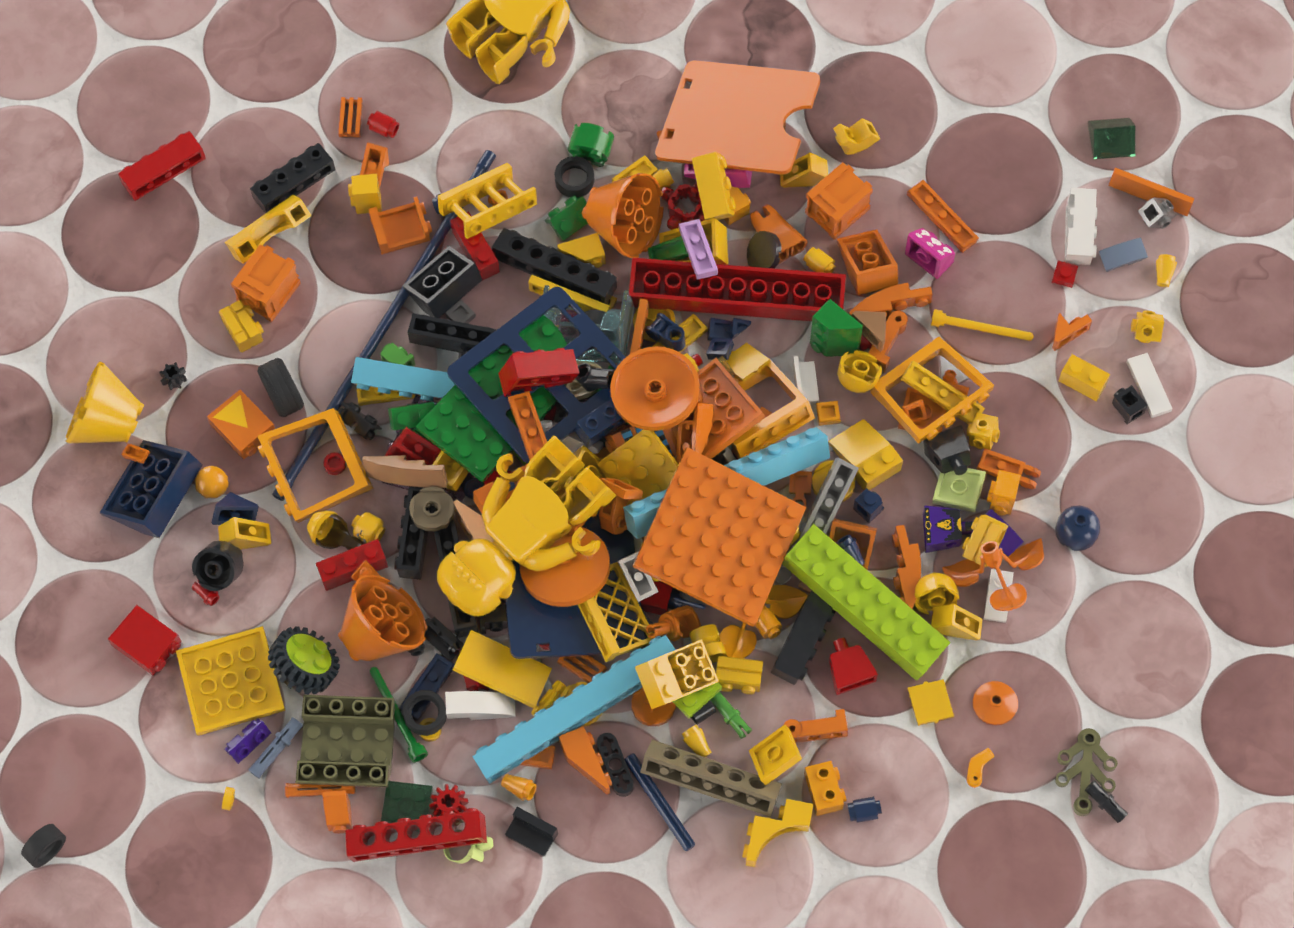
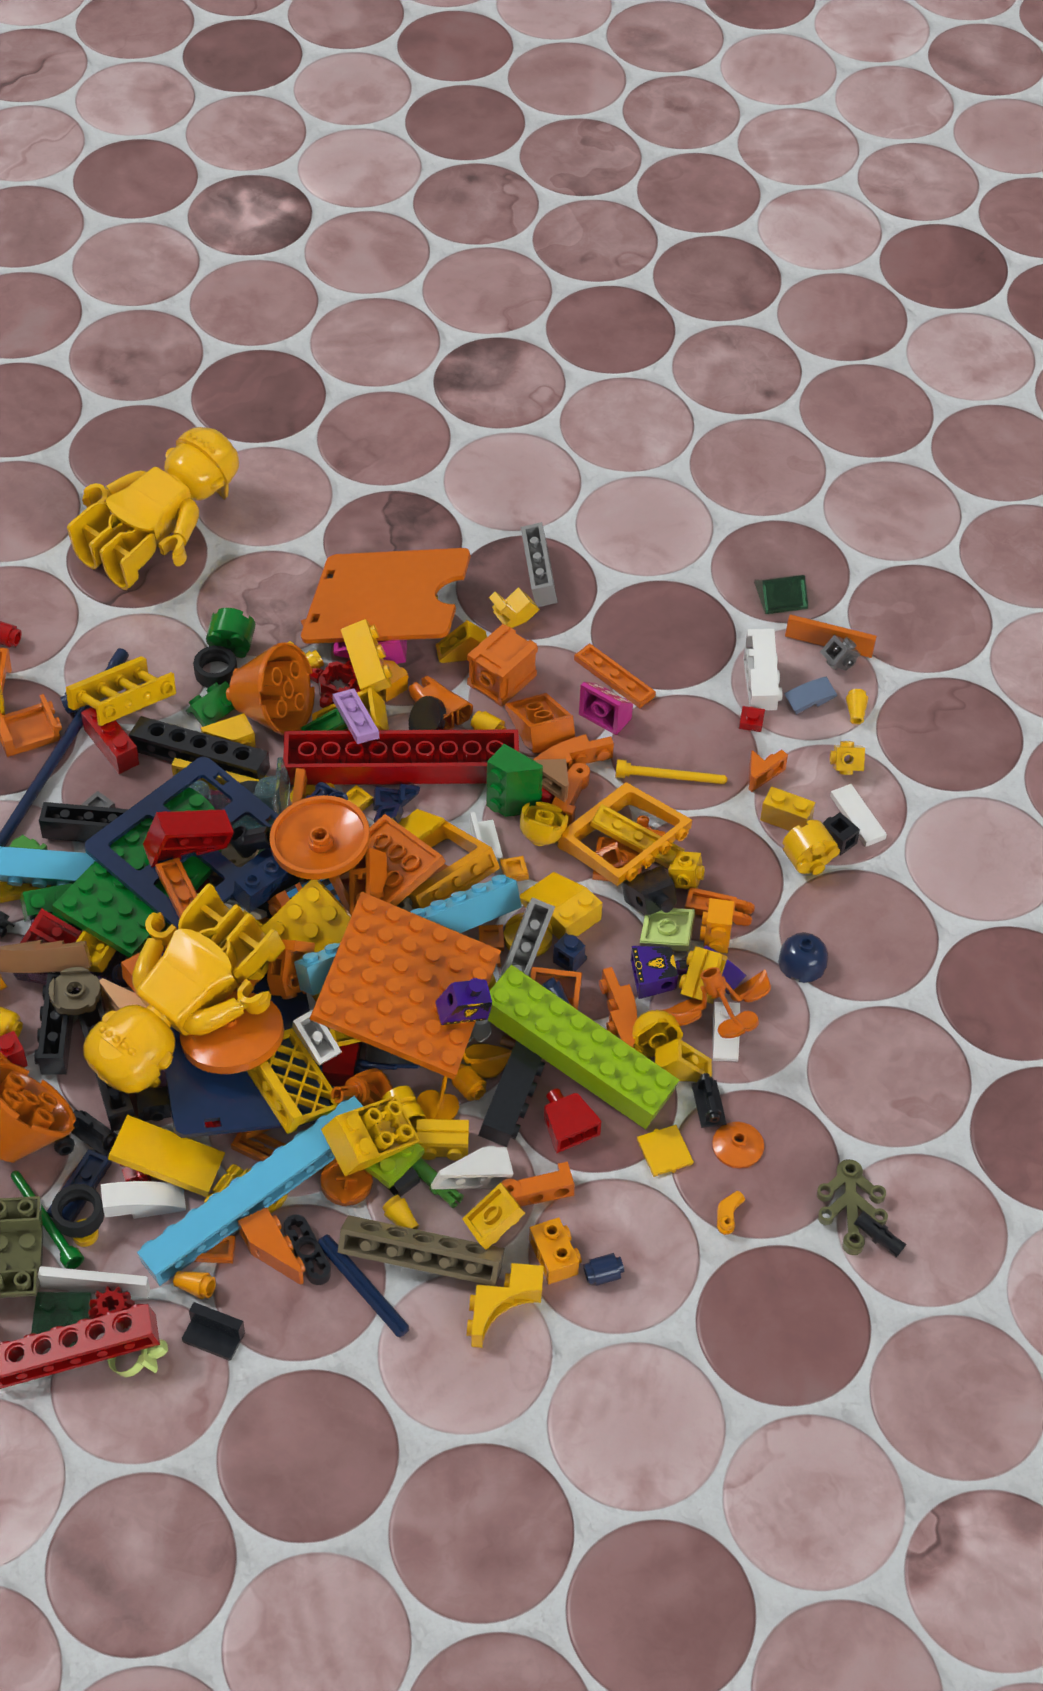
camera: 10 degrees left, 15 degrees down
(435, 776) = (92, 1281): none -> white tile
(443, 282) = (77, 773): black slope -> none
(771, 562) = (464, 1002): none -> dark purple torso
(772, 707) = (477, 1170): none -> white slope
(884, 91) = (539, 564): none -> light grey brick
(974, 661) = (708, 1102): none -> black hinge
(1099, 419) = (810, 847): none -> yellow brick

